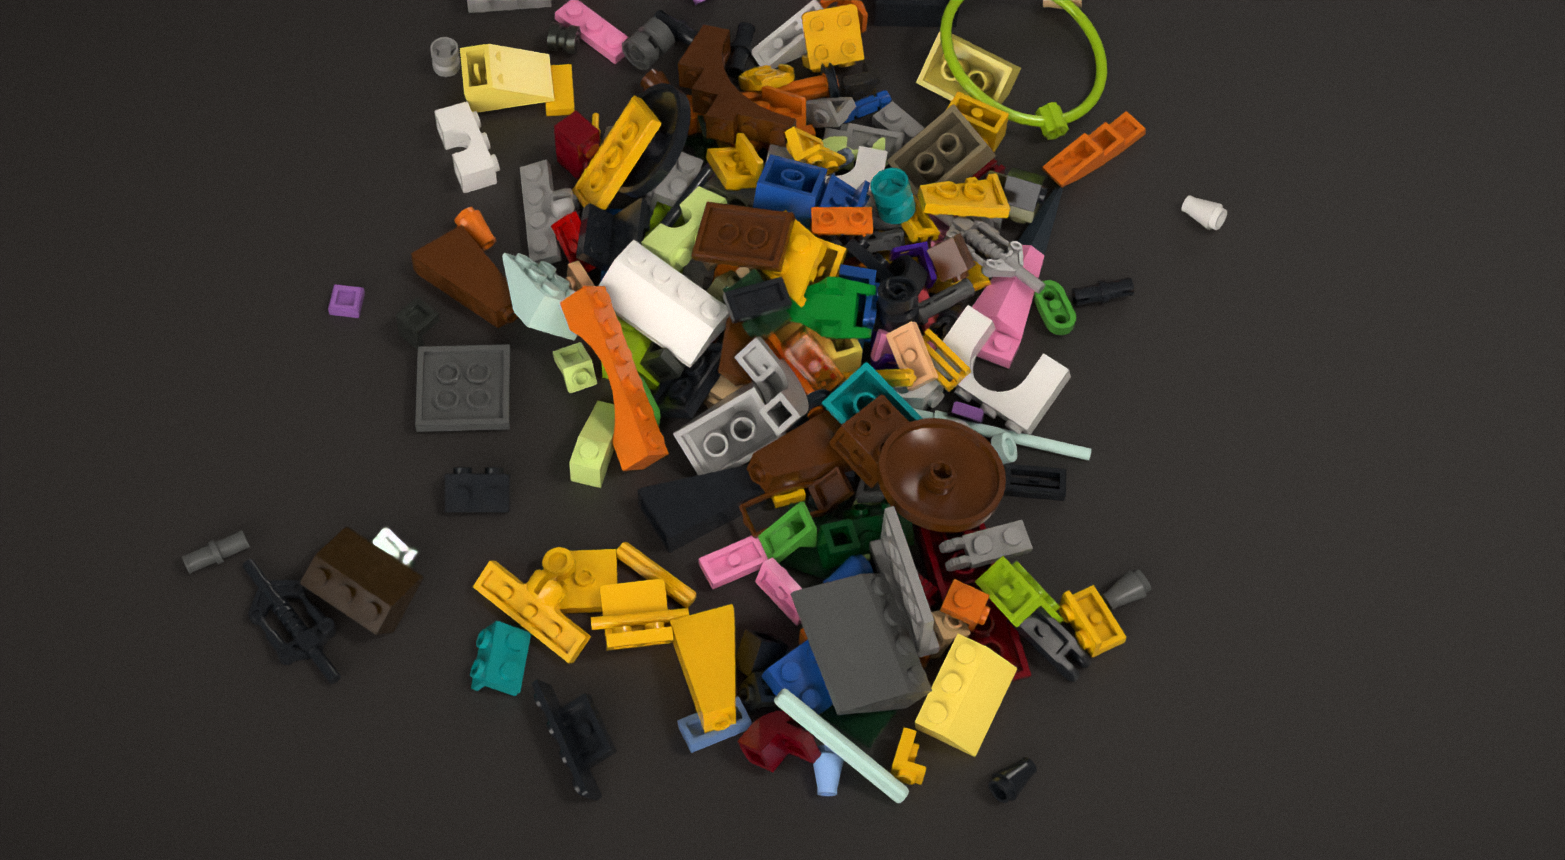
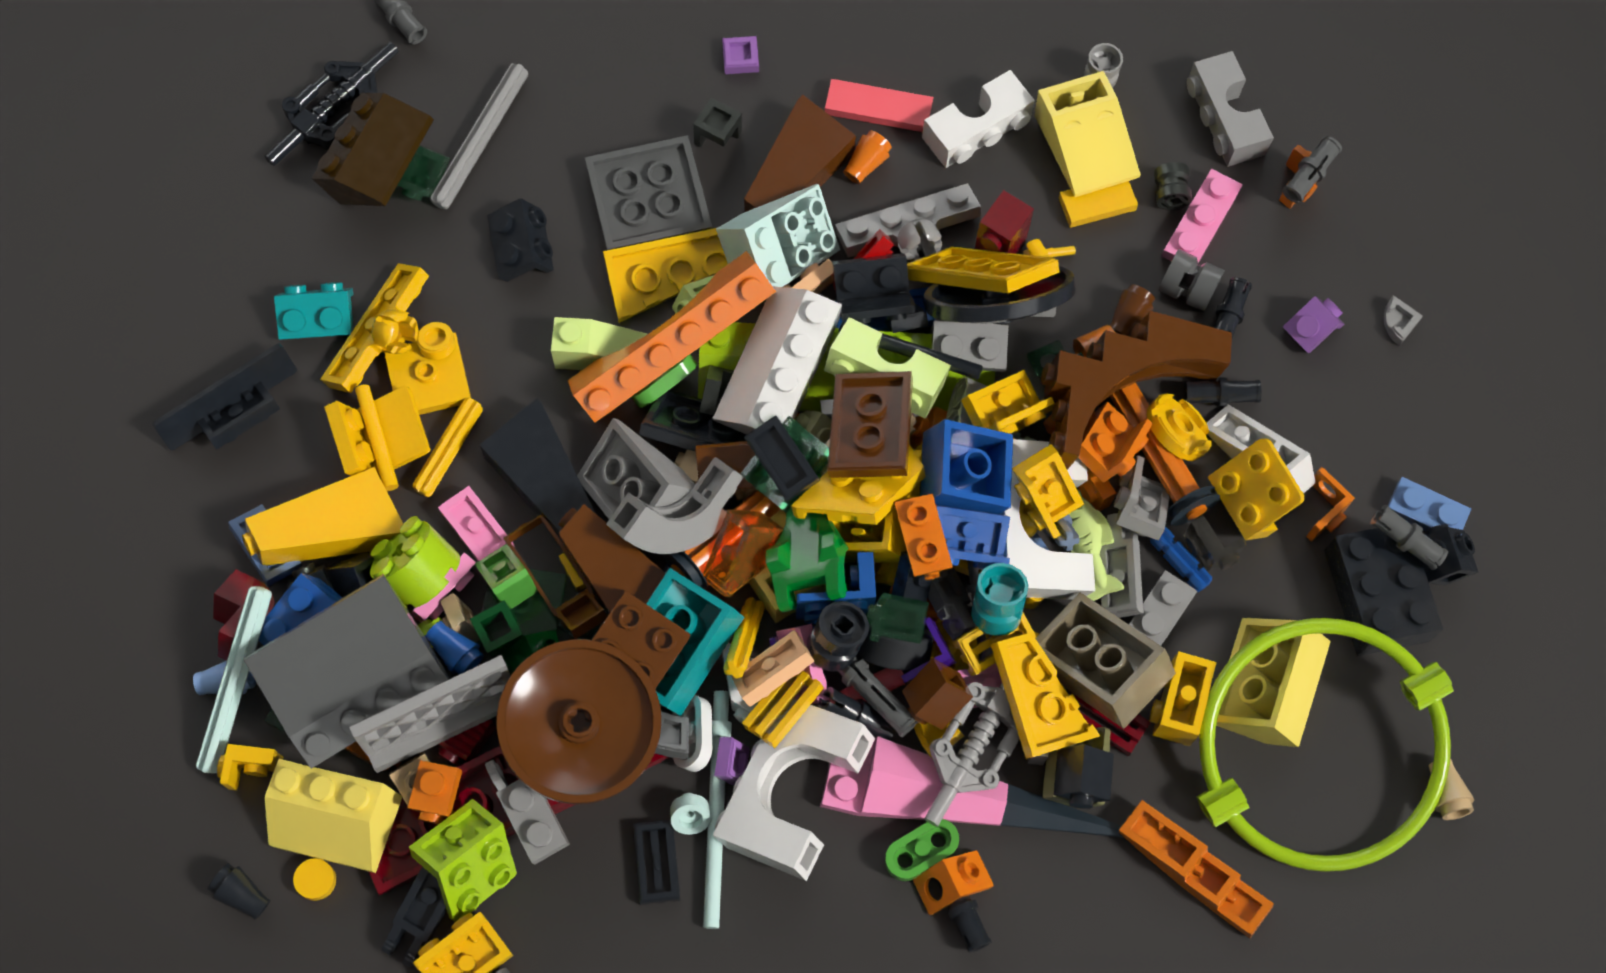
camera: 80 degrees right, 10 degrees up
(361, 504) = (479, 136): none -> light grey axle
(428, 213) = (878, 105): none -> coral tile
(535, 386) = (658, 269): none -> yellow wing
(764, 599) = (415, 562): none -> lime brick
(815, 576) = (458, 617): none -> tan plate
(892, 260) = (897, 618): none -> clear green bracket
(1009, 724) = (314, 879): none -> yellow tile
(1079, 286) = (958, 877): none -> orange bracket

